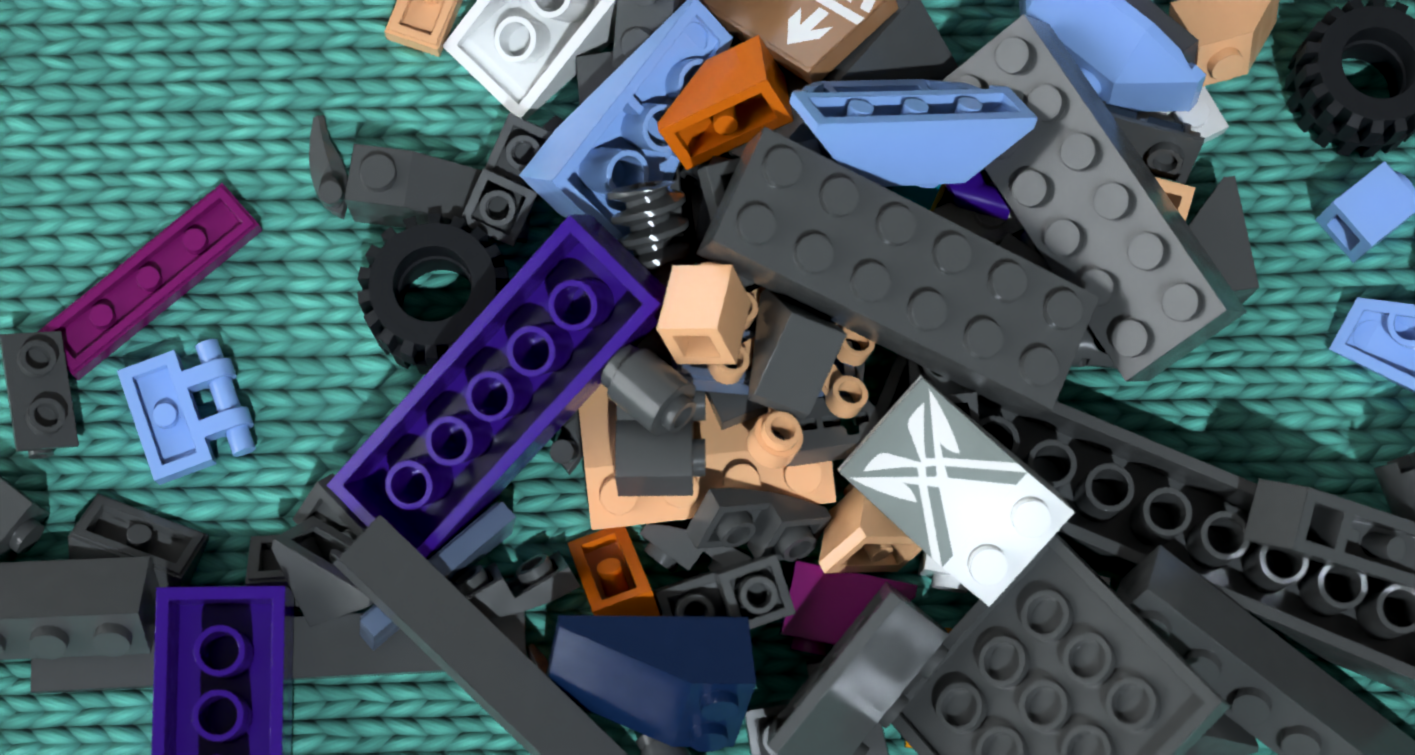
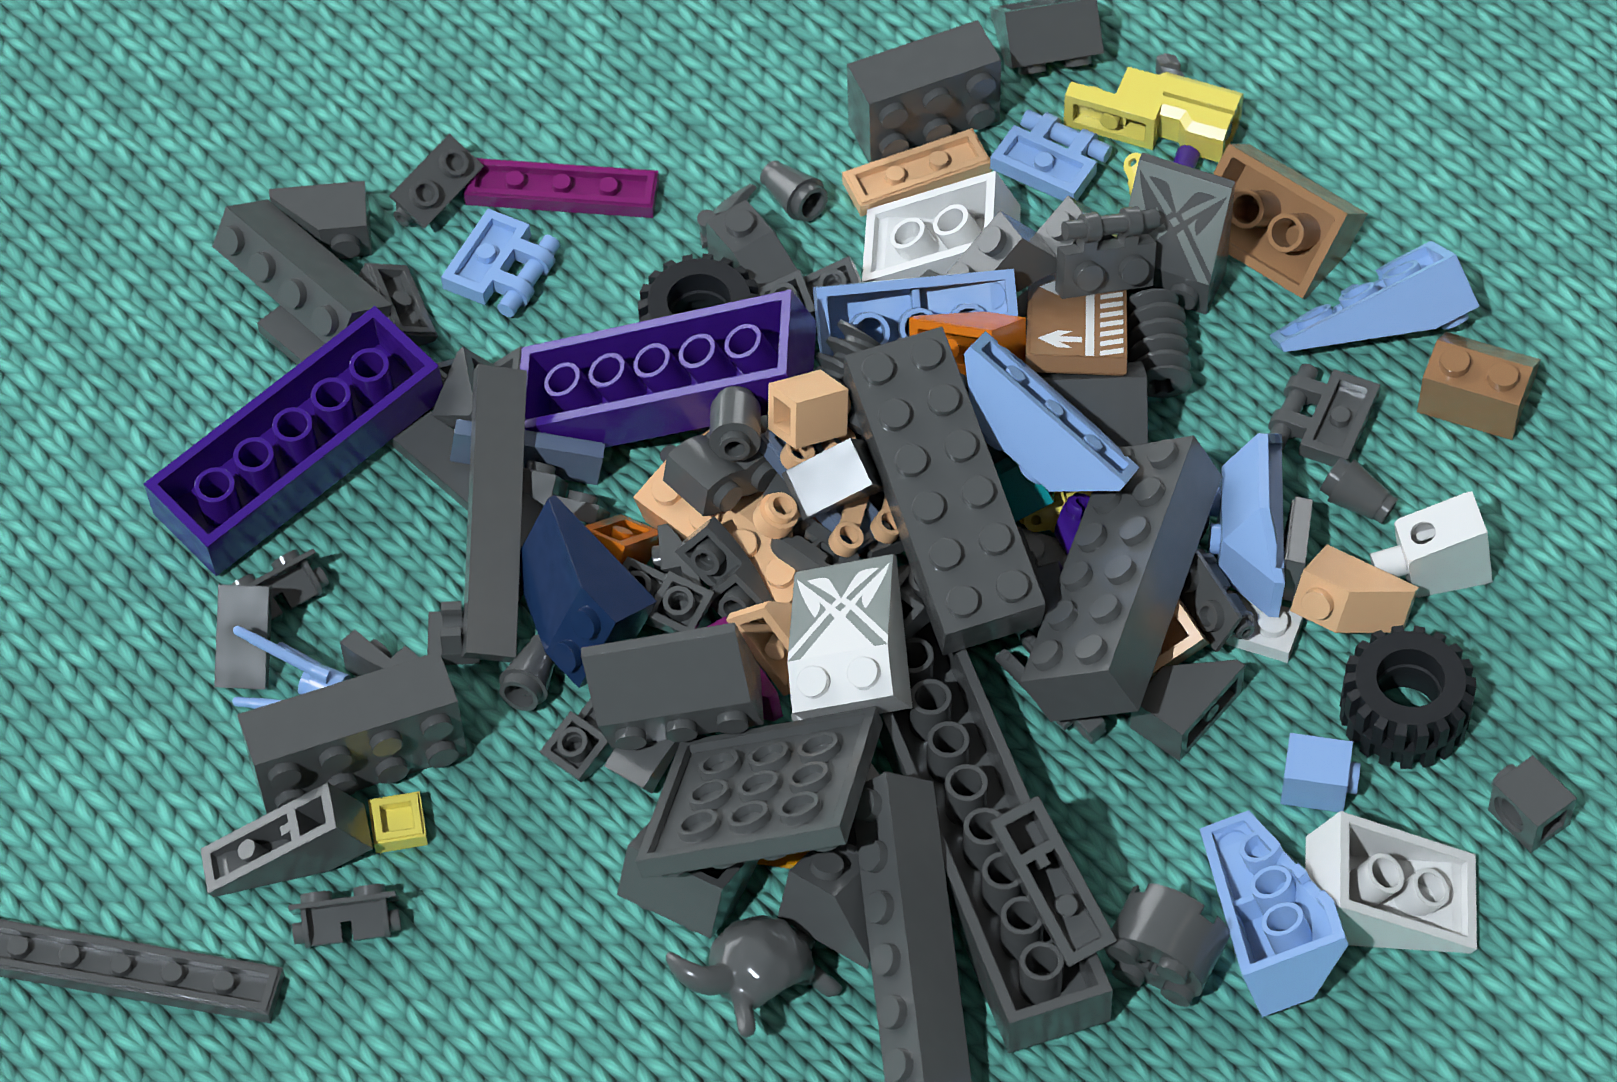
camera: 55 degrees right, 20 degrees down
(364, 88) = (795, 191): none -> dark grey cone

